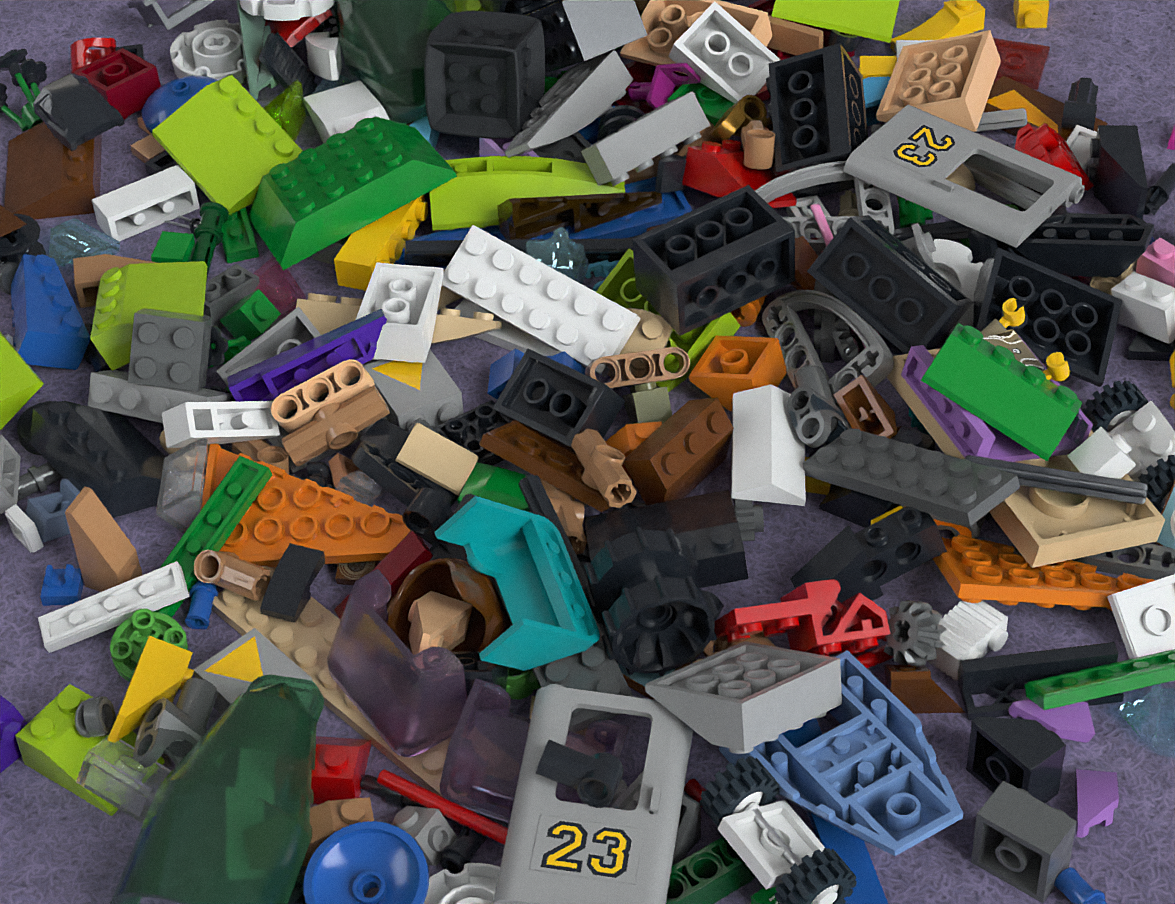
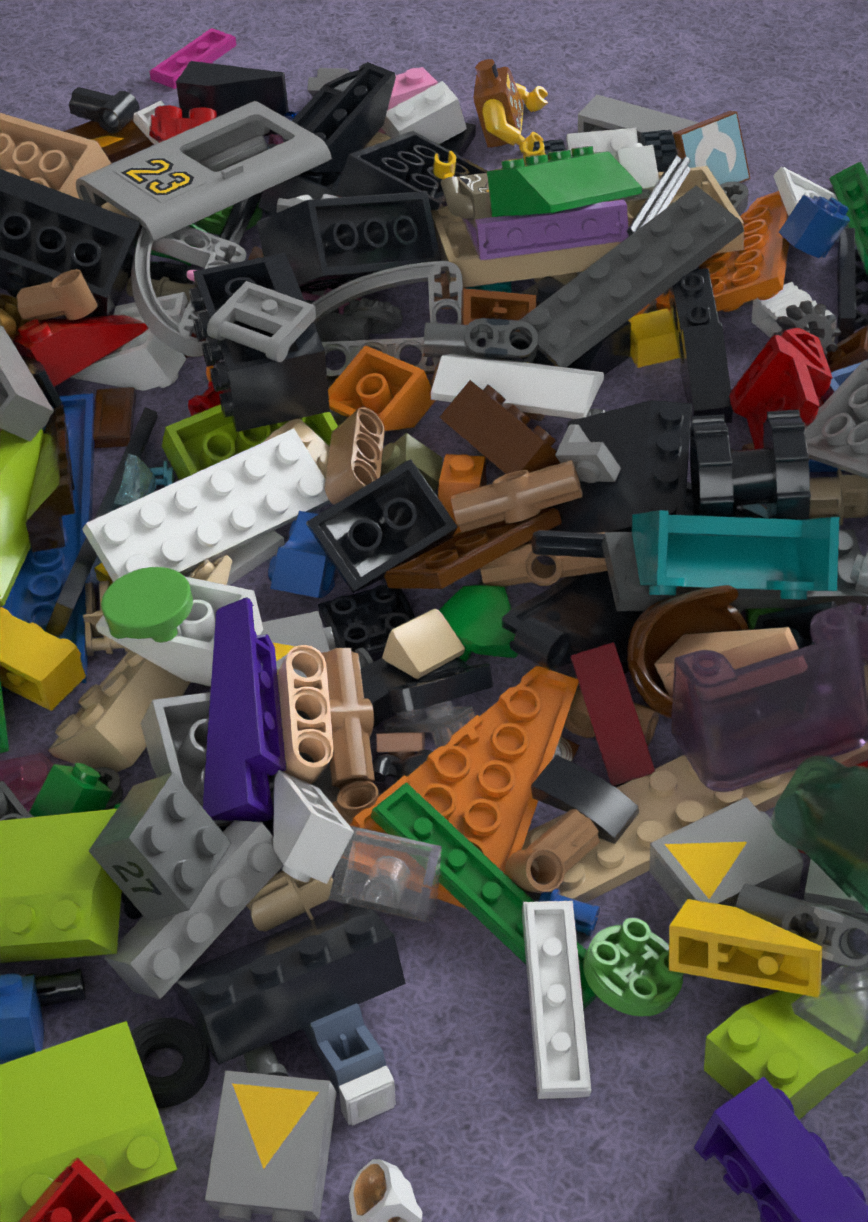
camera: 75 degrees left, 0 degrees up
(61, 586) = (480, 1066): blue tile -> none
(95, 717) = (786, 998): dark grey tile -> none
(100, 544) = (471, 988): medium nougat slope -> none
(387, 276) = (147, 604): none -> bright green tile
(659, 494) = (590, 459): none -> light grey bracket
(696, 237) = (266, 311): none -> light grey plate
(1082, 613) = (815, 225): none -> blue brick

